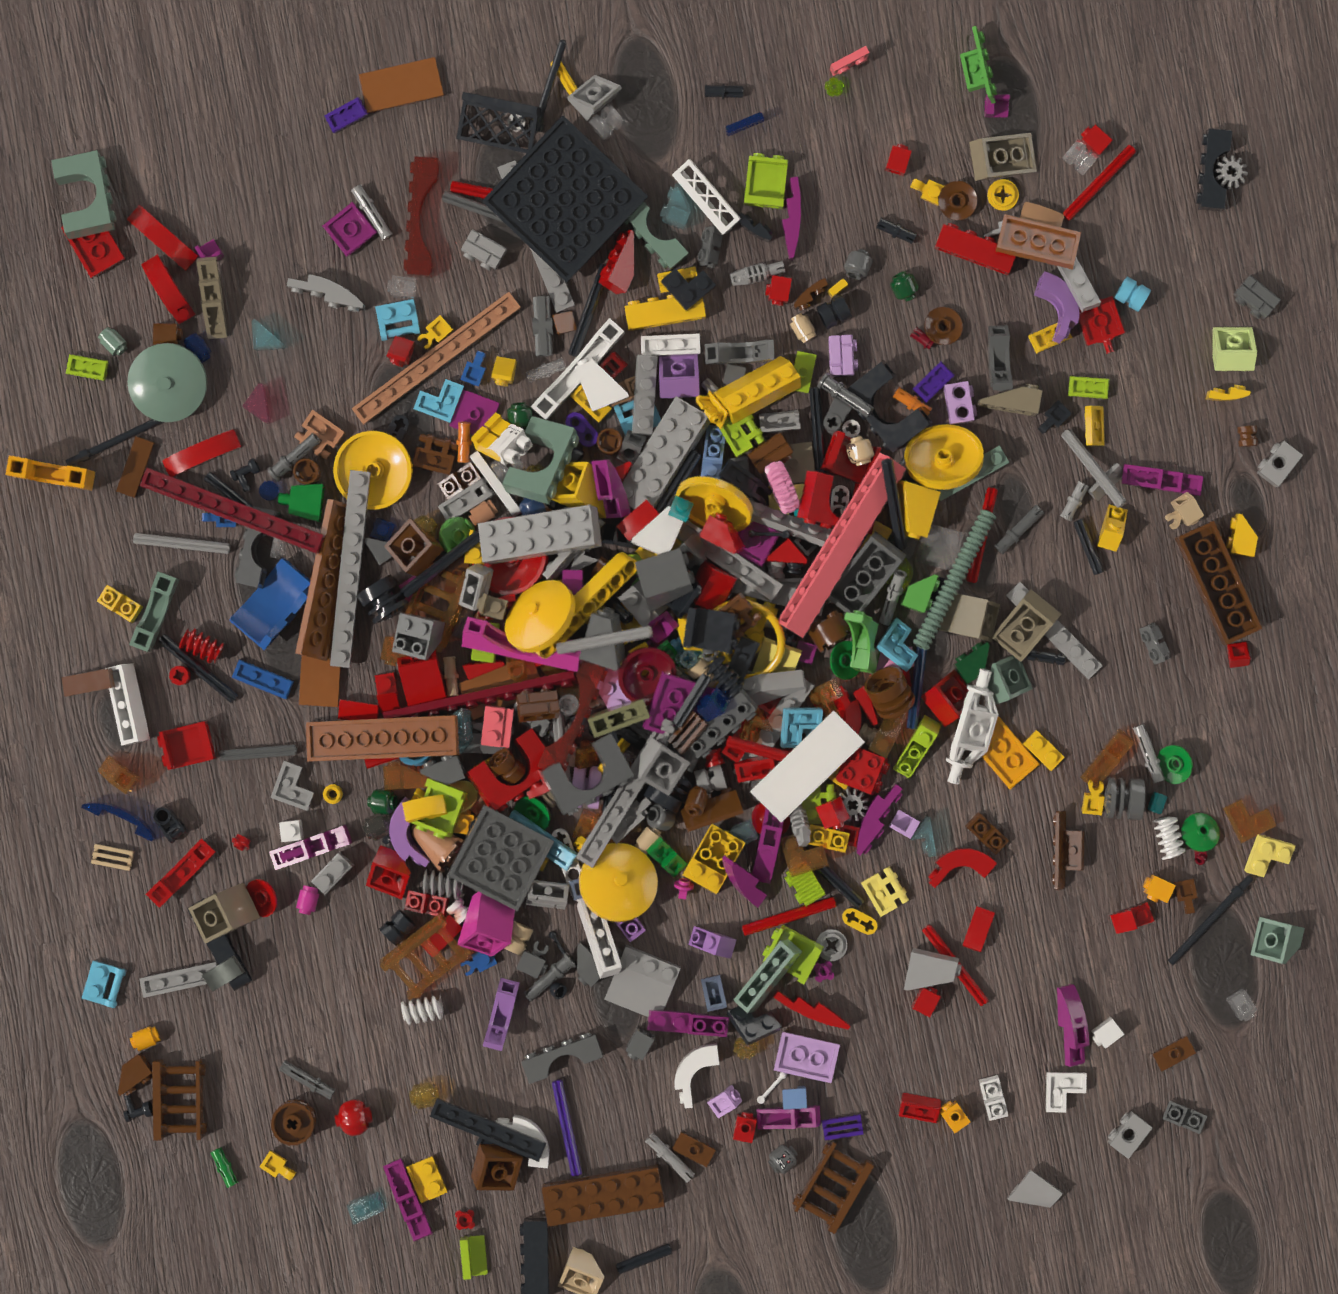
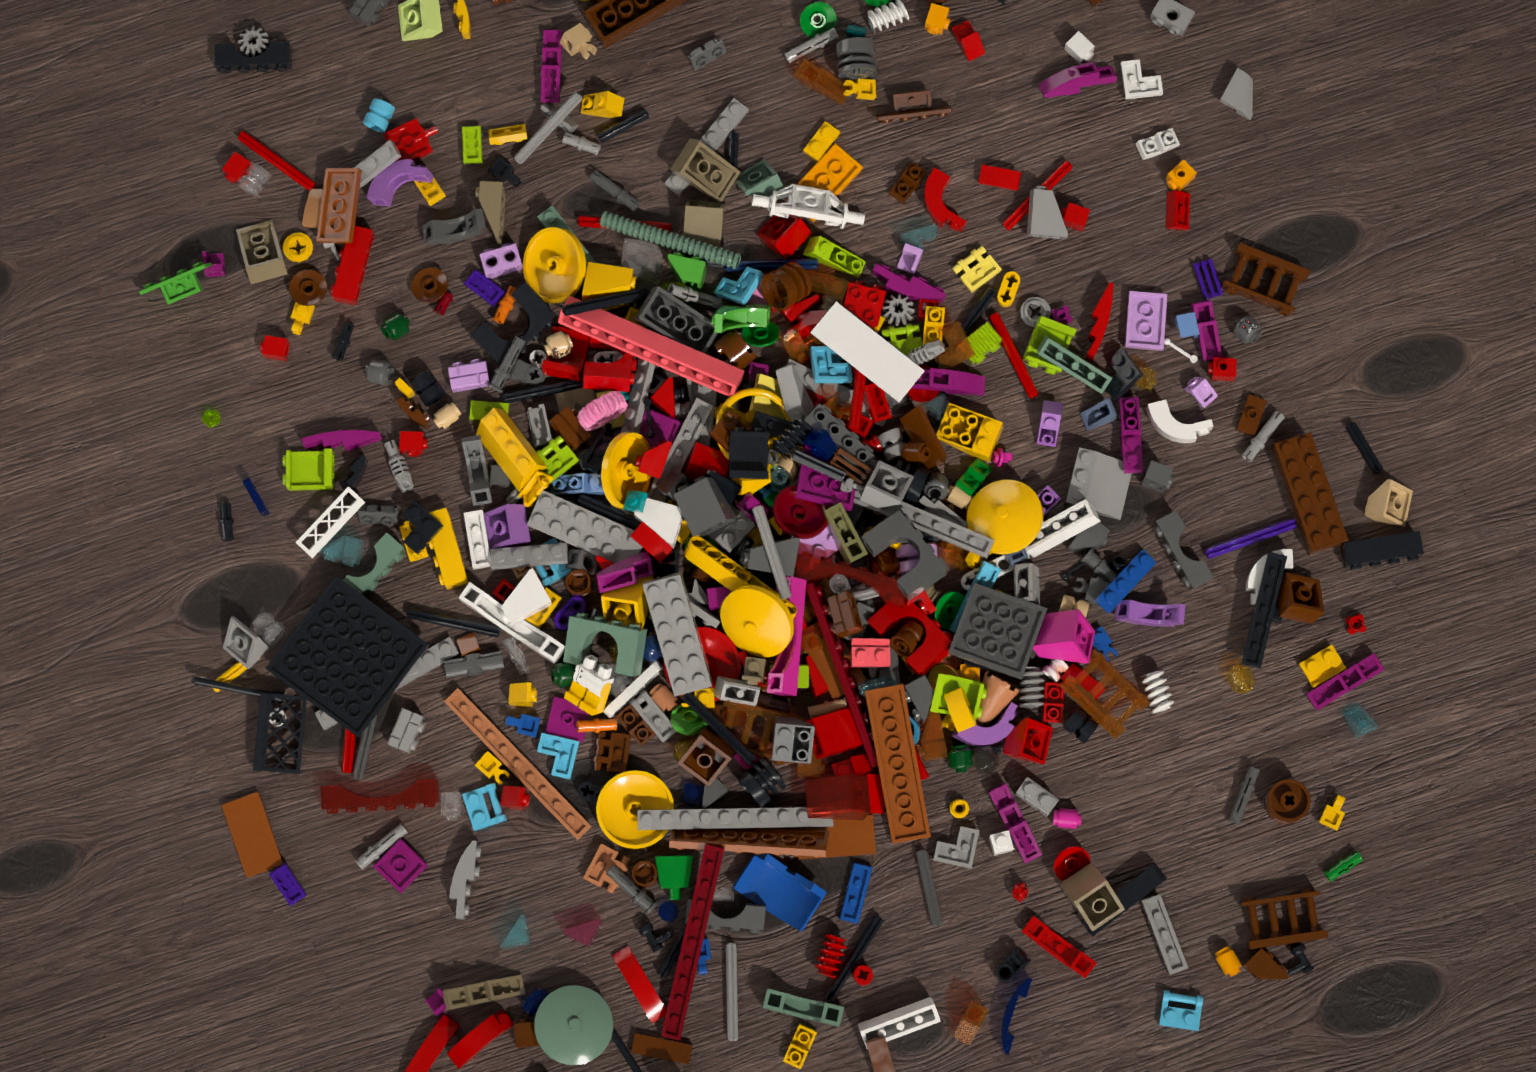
camera: 90 degrees left, 10 degrees down
(96, 854) = (1053, 1022): tan tile -> none
(186, 745) = (931, 959): red panel -> none
(223, 973) = (1151, 888): pearl dark grey slope -> none
(353, 1117) = (1273, 743): red plant -> none
(356, 674) = (838, 797): none -> clear red slope
(473, 1256) = (1389, 611): lime panel -> none
(537, 994) = (1125, 581): none -> blue plate
(620, 266) = (405, 596): slope -> none
(744, 882) = (987, 398): magenta slope -> none
(833, 813) = (909, 323): red brick -> none
(844, 64) = (190, 410): coral plate -> none
(970, 664) = (750, 217): dark green slope -> none

